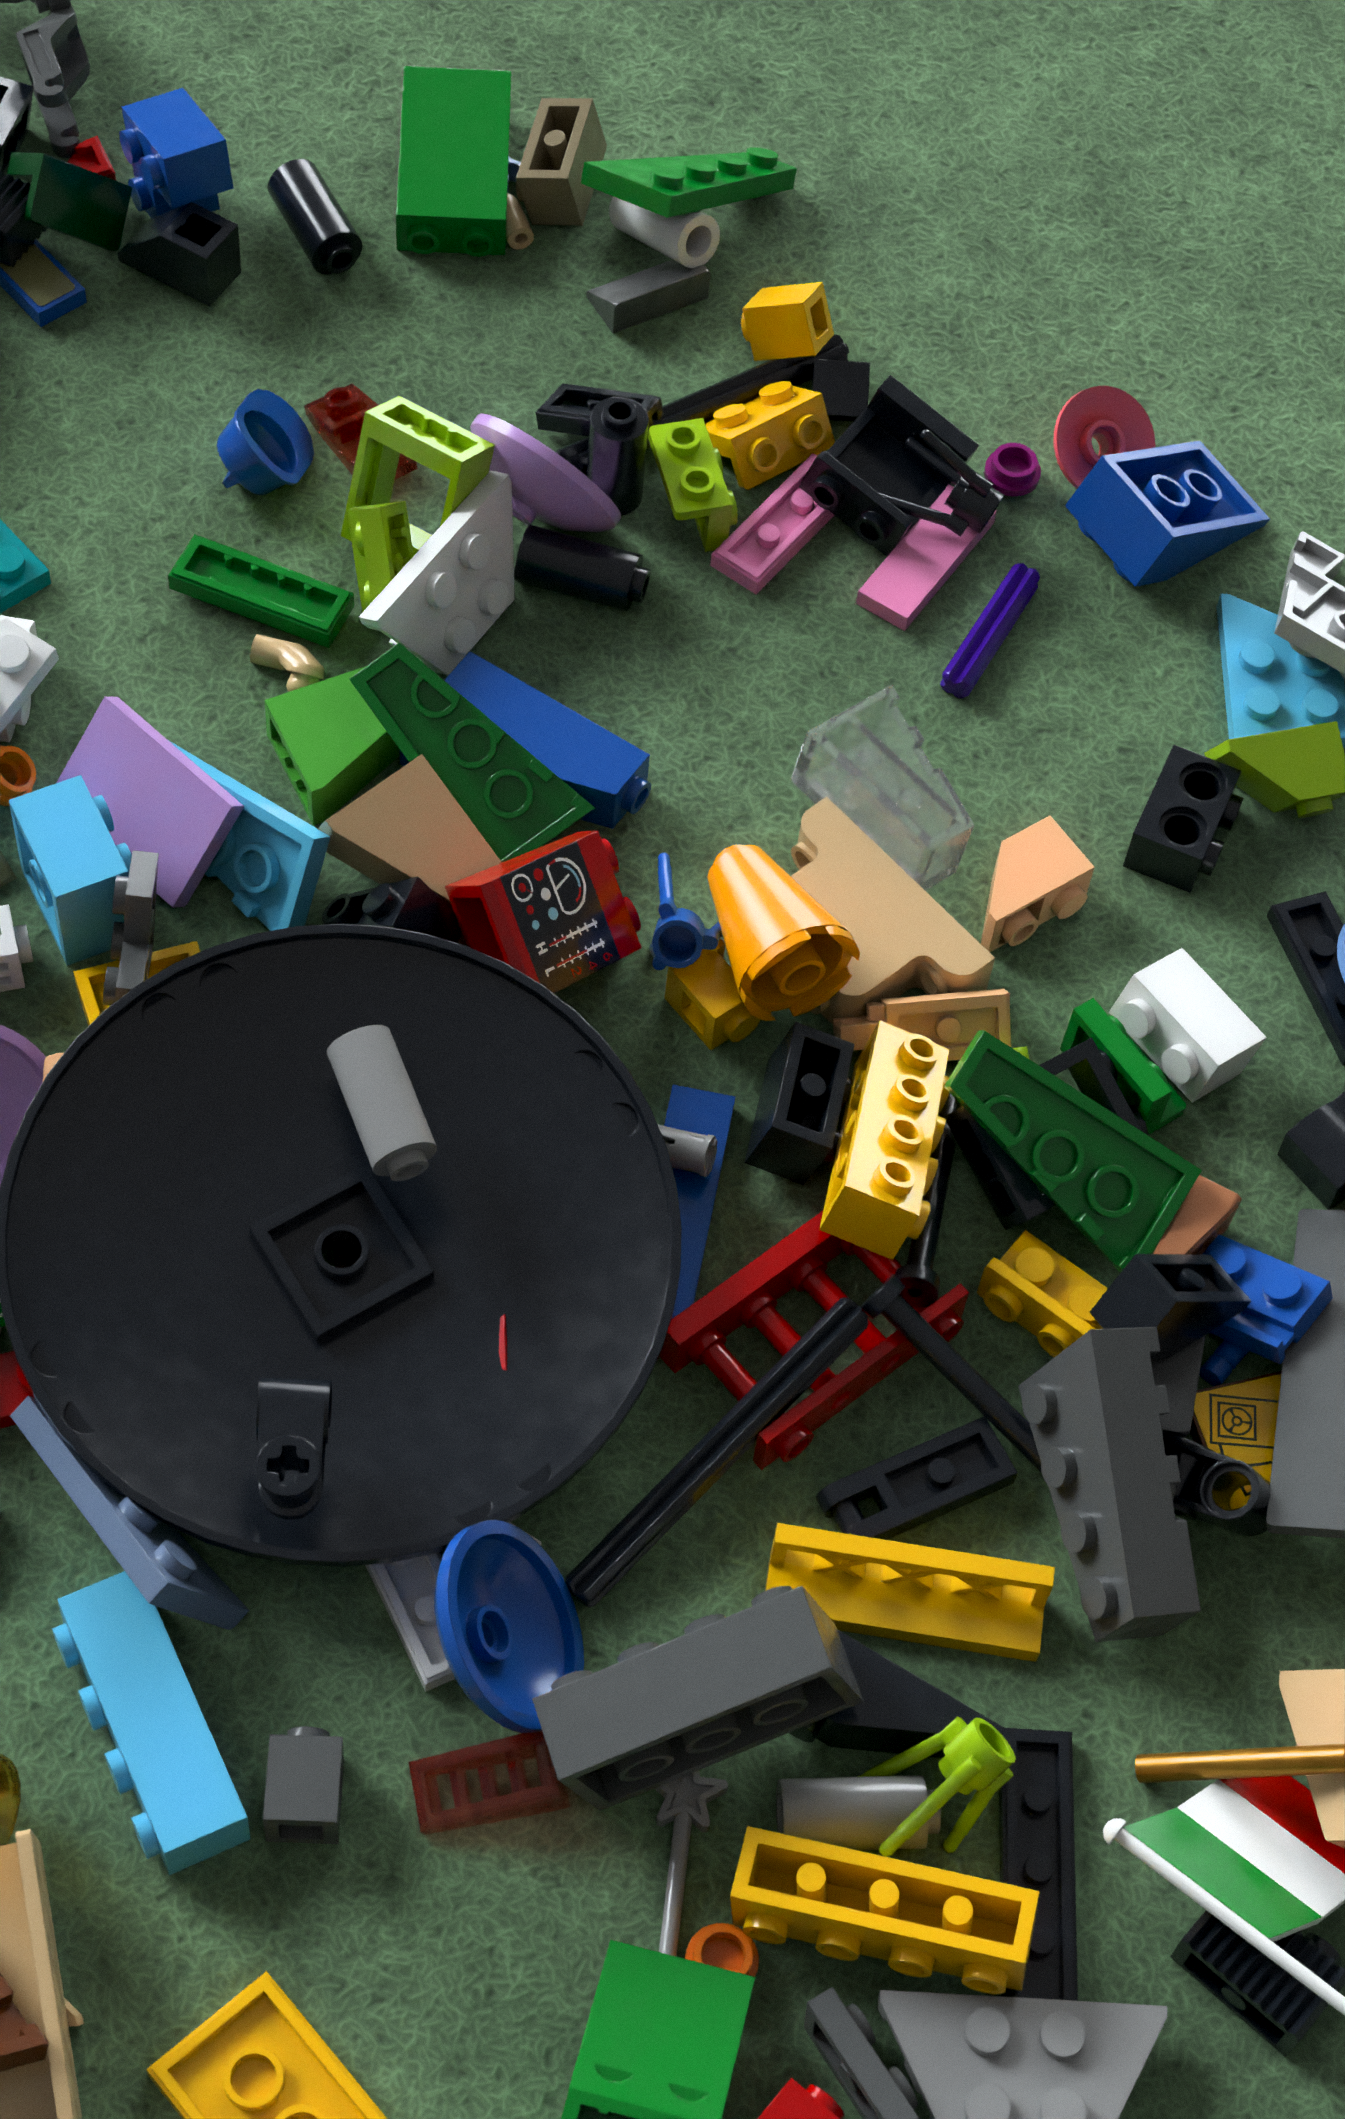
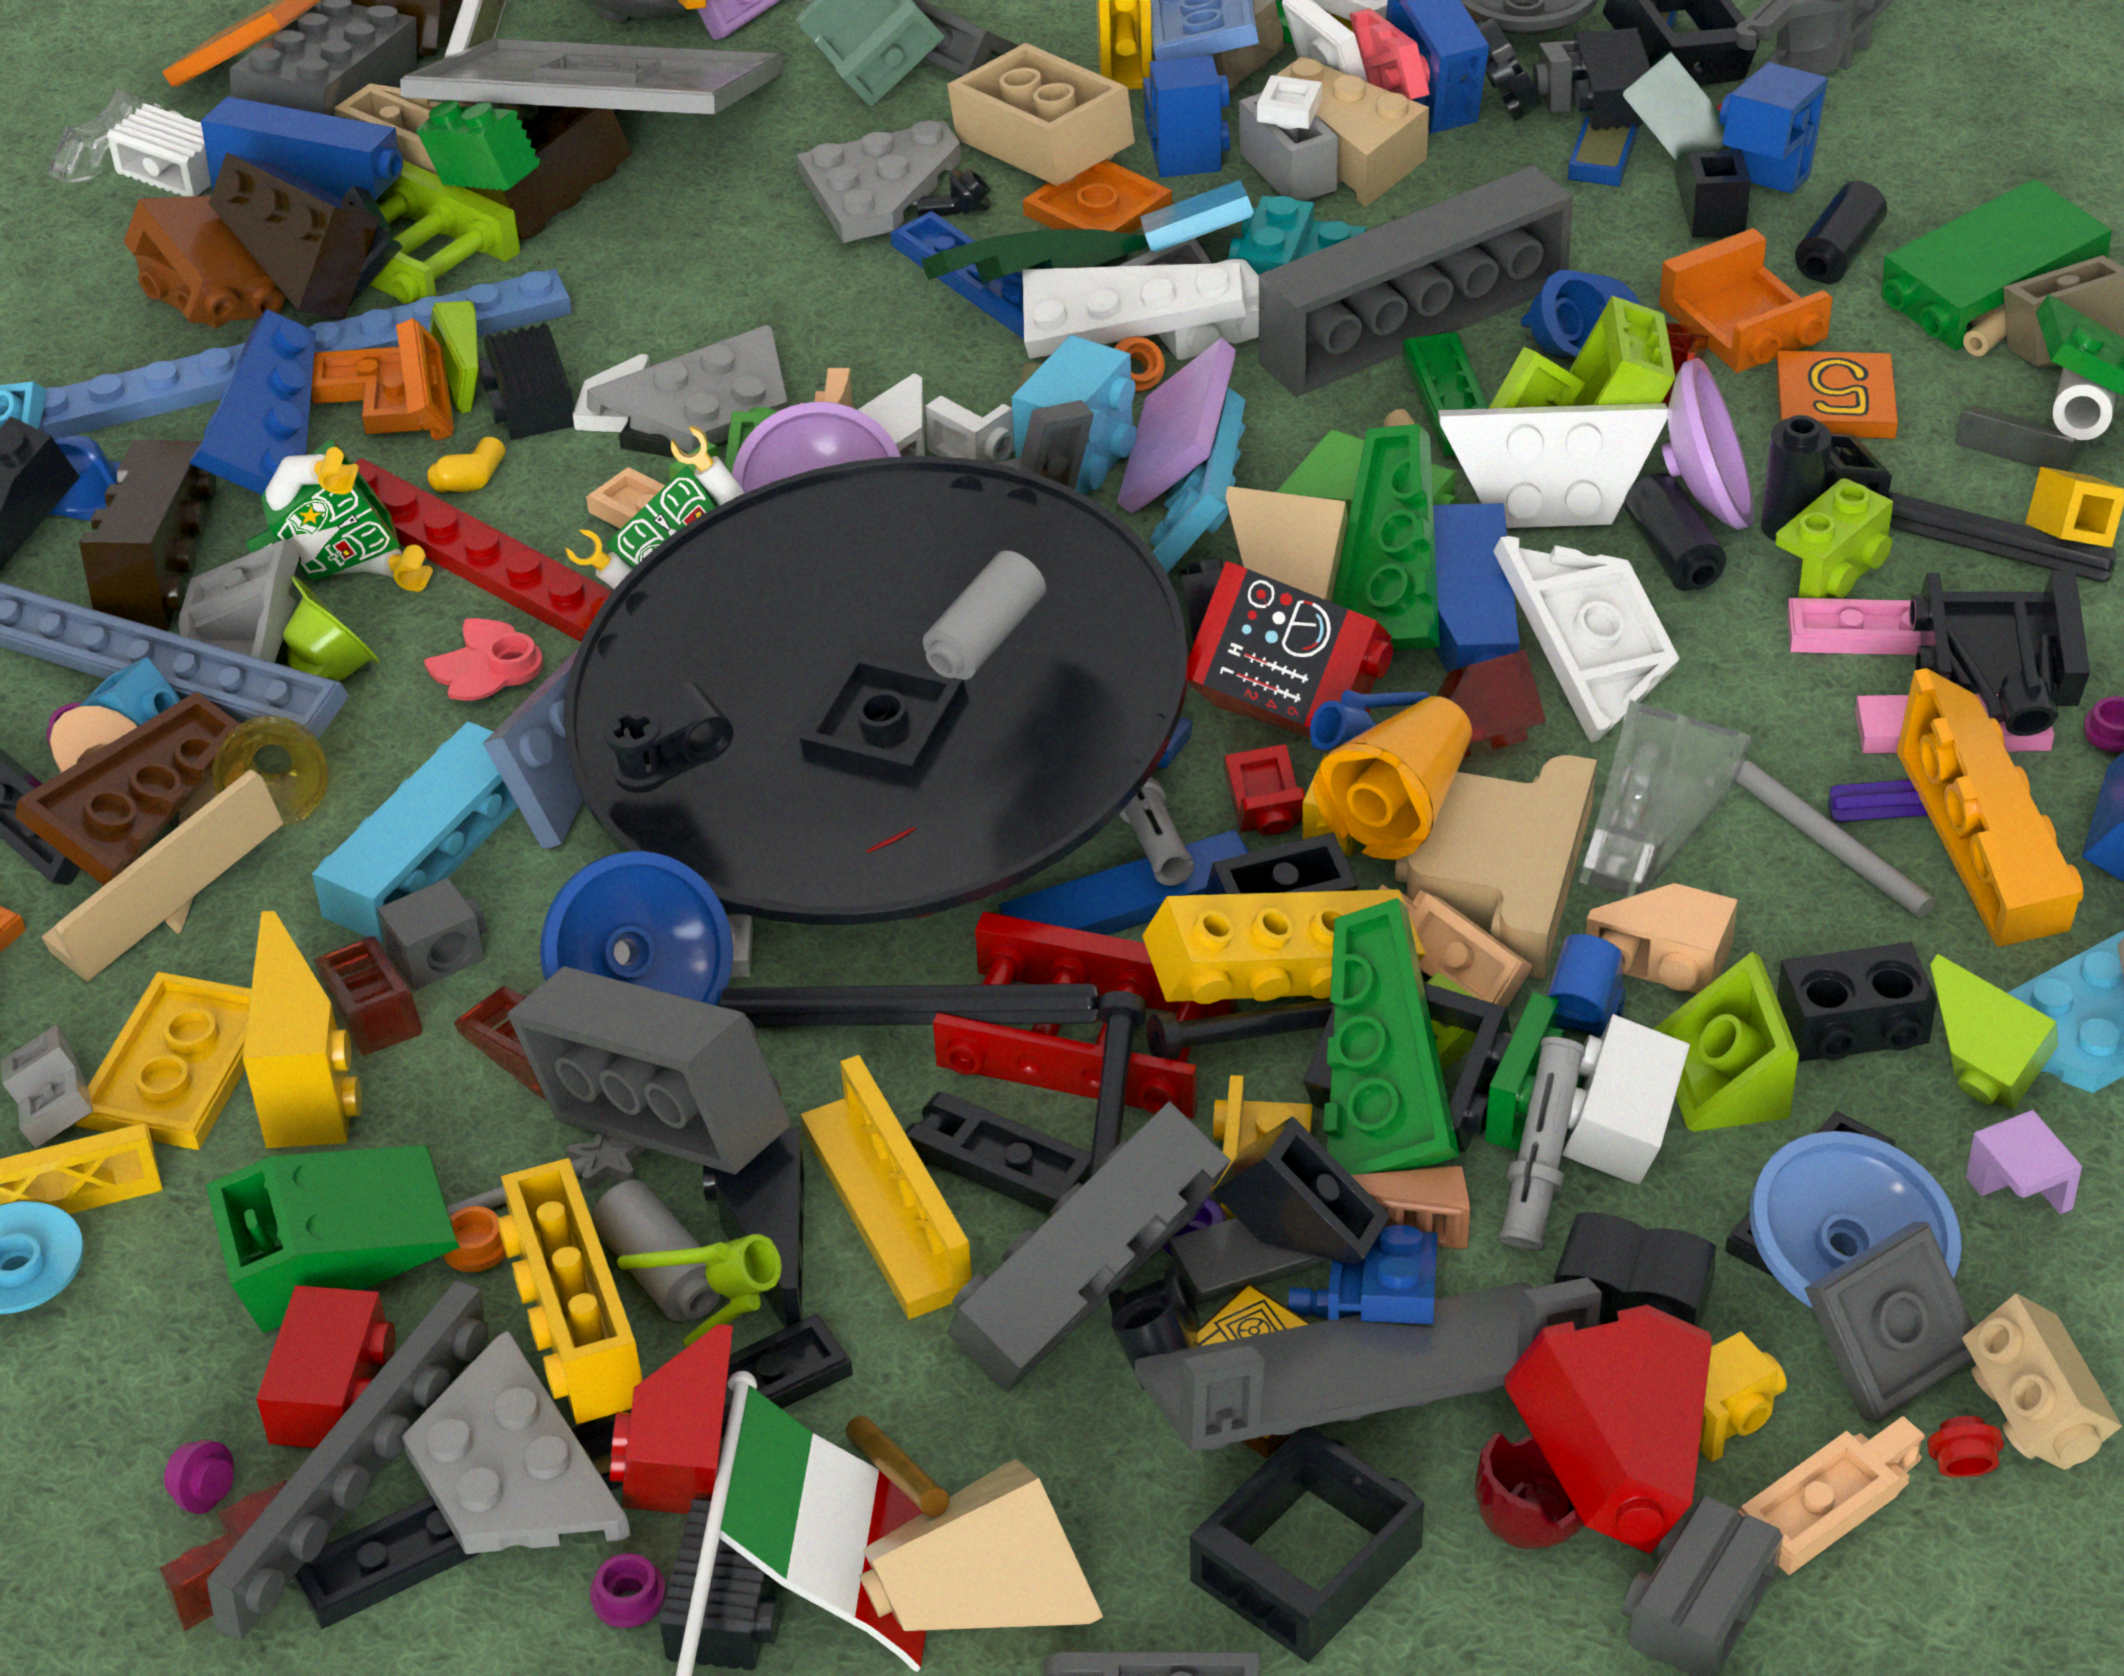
camera: 65 degrees right, 15 degrees down
(118, 518) = (1412, 279): none -> dark grey brick
(339, 338) = (1740, 303): none -> orange panel
(373, 1918) = (373, 1001): none -> clear red slope
(392, 1982) = (294, 1049): none -> yellow slope
(494, 359) = (1839, 389): none -> orange tile
(651, 1035) = (1264, 790): none -> red bracket
(659, 698) = (1591, 628): none -> white wing
(688, 818) = (1496, 698): none -> clear red slope
(771, 432) = (1963, 564): yellow bracket -> none
(842, 386) = (2060, 559): black tile -> none
(1003, 711) = (1836, 840): none -> light grey bar
(1067, 976) = (1588, 984): none -> blue piece
(1075, 612) = (1985, 813): none -> light orange wedge
(1123, 1905) = (673, 1435): none -> red slope
(1173, 908) = (1738, 1053): none -> lime slope
(1221, 2031) = (624, 1574): none -> magenta plate
(1222, 1128) = (1536, 1169): none -> light grey pin

